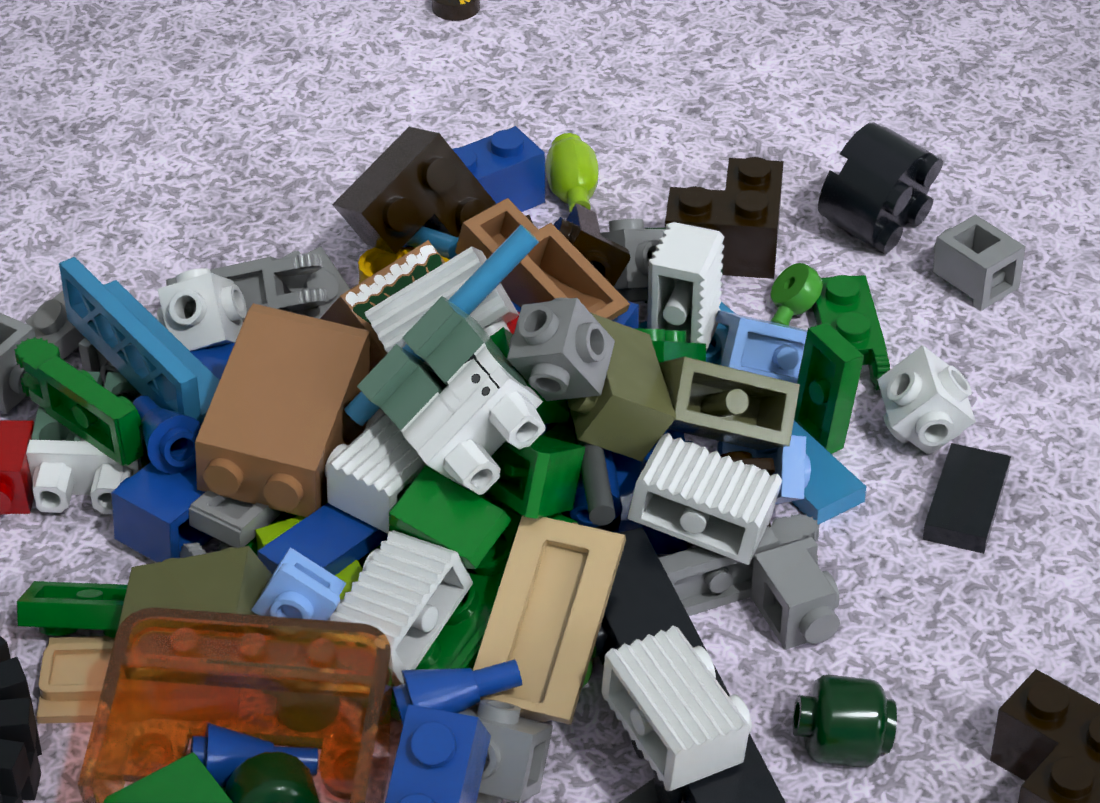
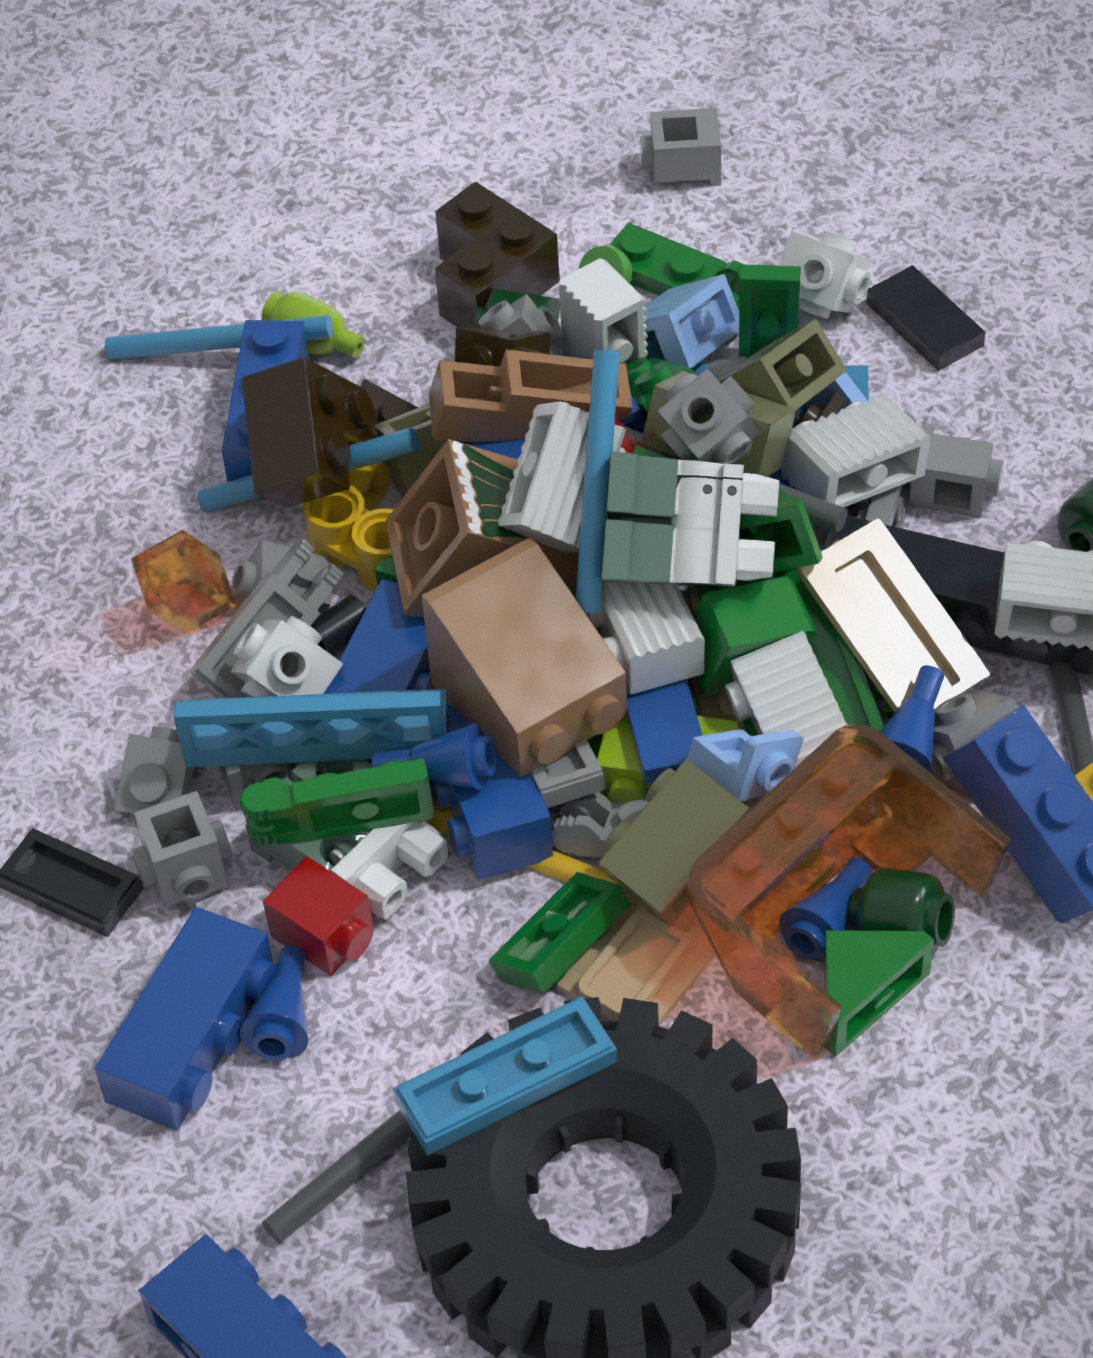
camera: 50 degrees left, 10 degrees up
(246, 228) = (183, 582): none -> clear orange brick
(491, 123) = (200, 339): none -> dark azure bar
(880, 186) = (555, 146): black brick -> none

